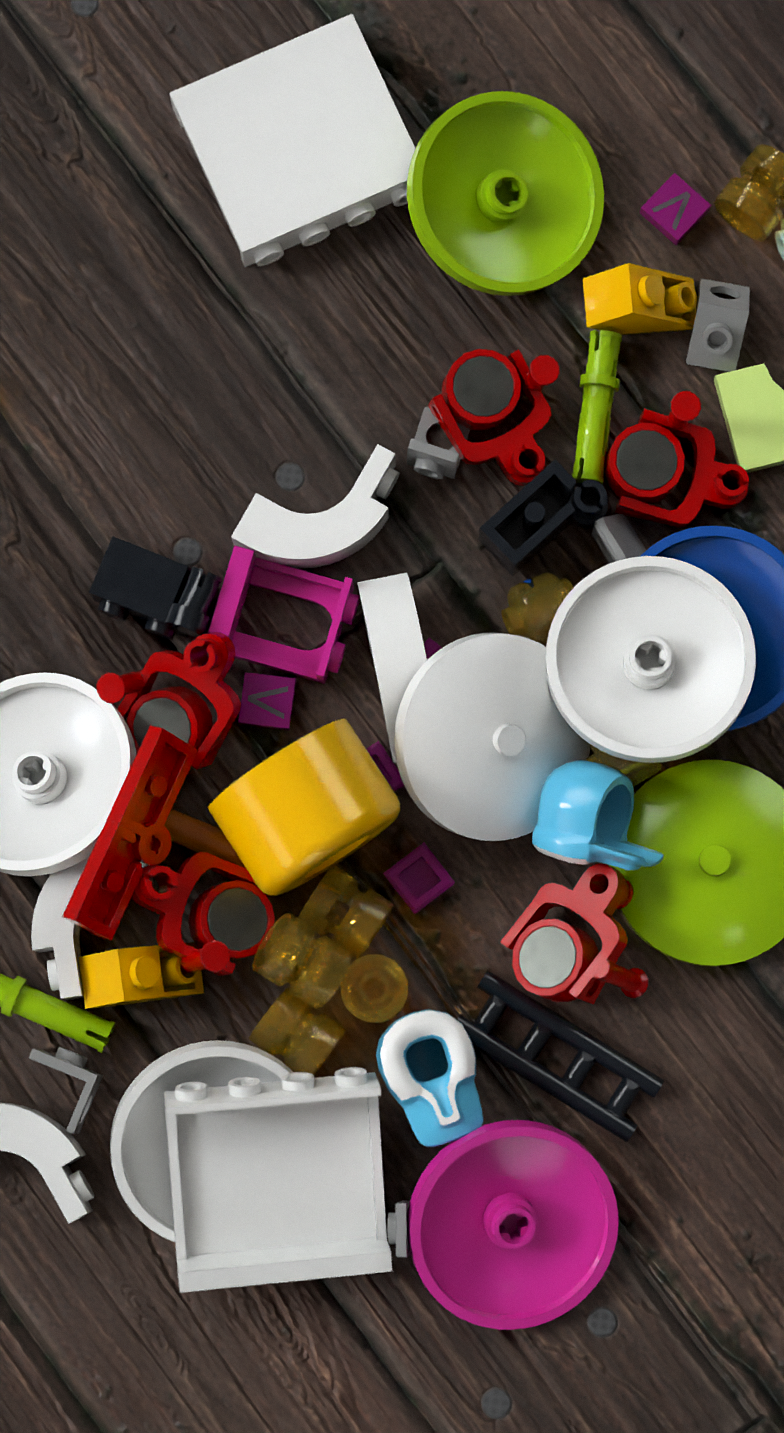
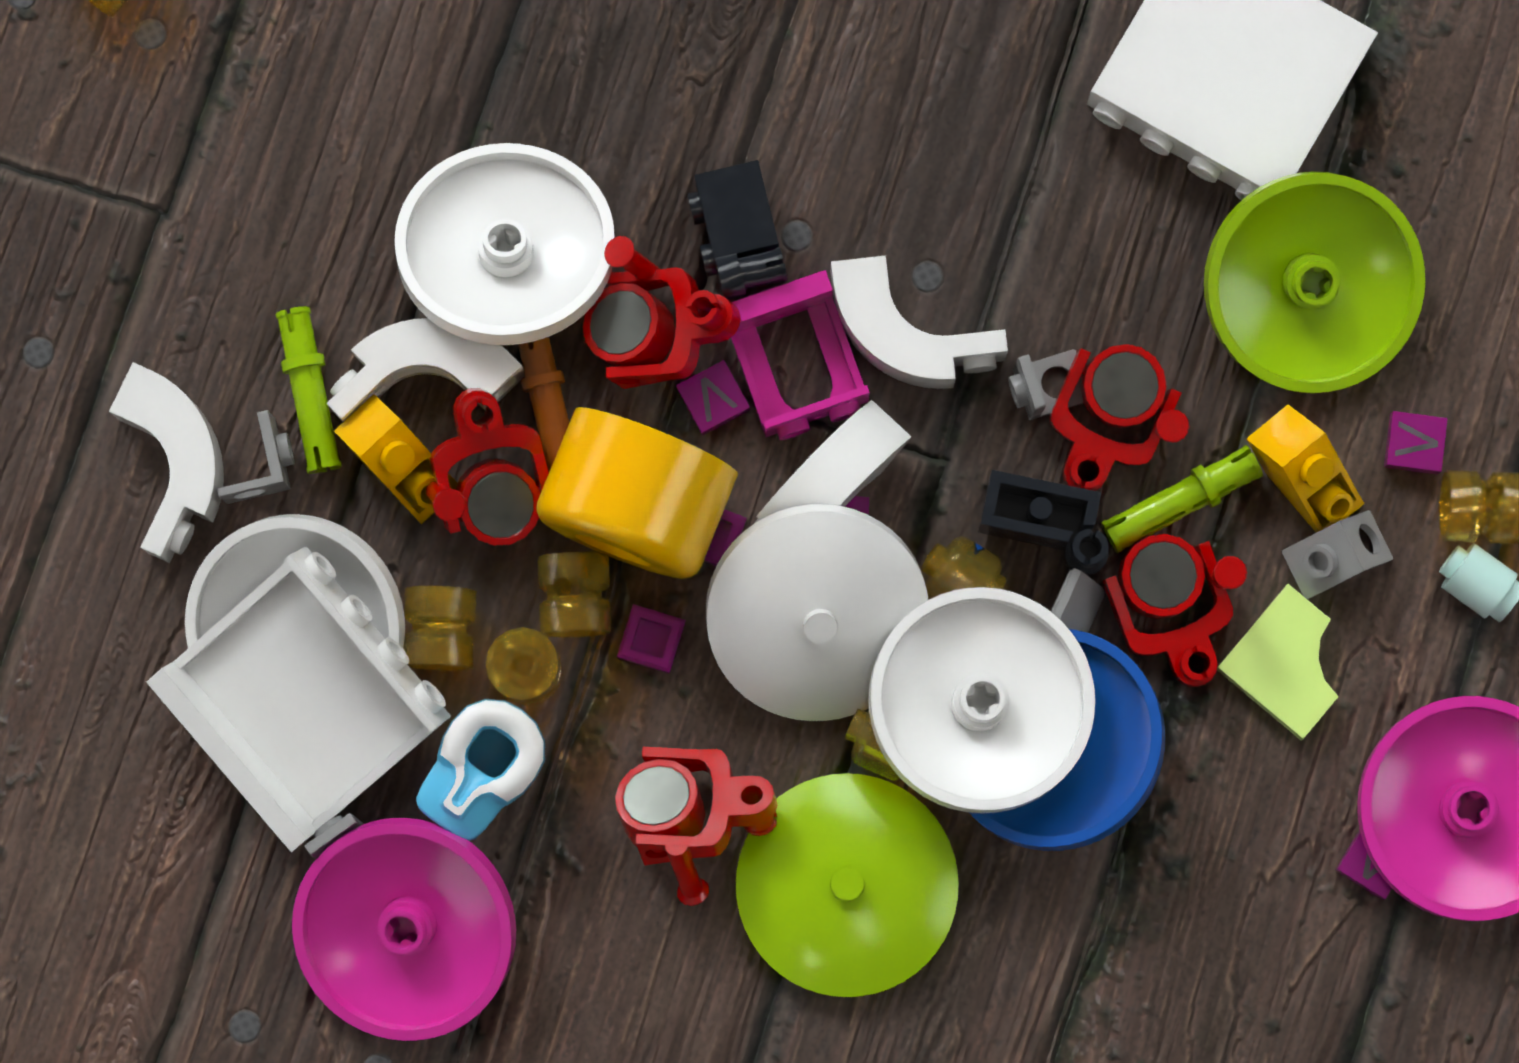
camera: 55 degrees right, 0 degrees up
(131, 833) = (507, 360): red hinge -> none
(307, 964) = (502, 585): clear yellow wheel -> none
(587, 817) = (803, 746): medium azure piece -> none
(589, 1052) = (561, 896): black bar -> none

